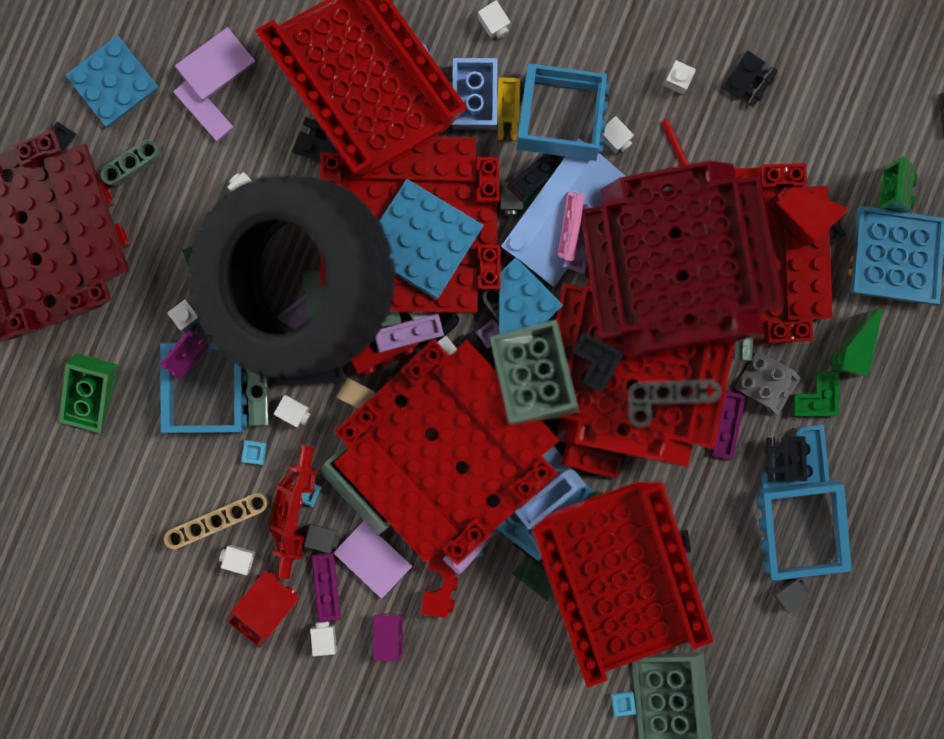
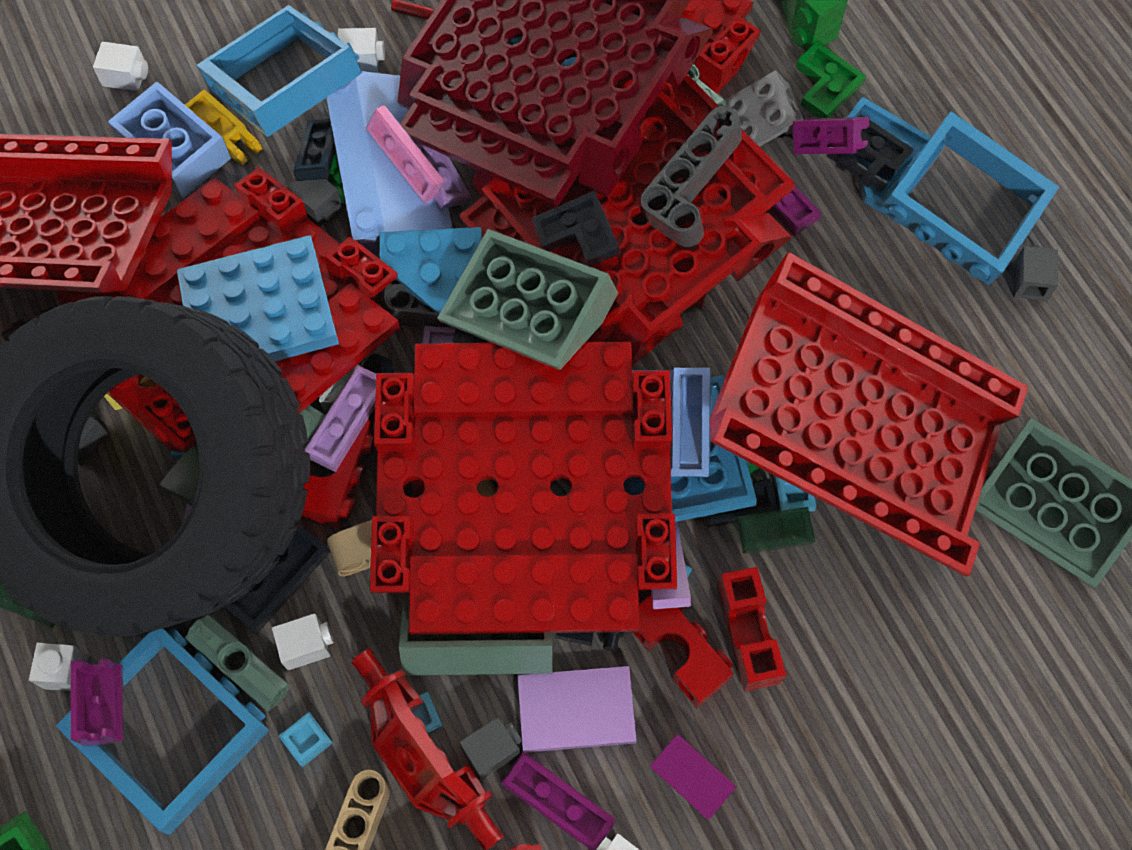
camera: 40 degrees left, 20 degrees down
(475, 607) = (744, 612): none -> red arch
(591, 460) = (688, 346): red tile -> none
(623, 703) = (1022, 562): medium azure tile -> none
(776, 431) = (829, 135): none -> magenta hinge

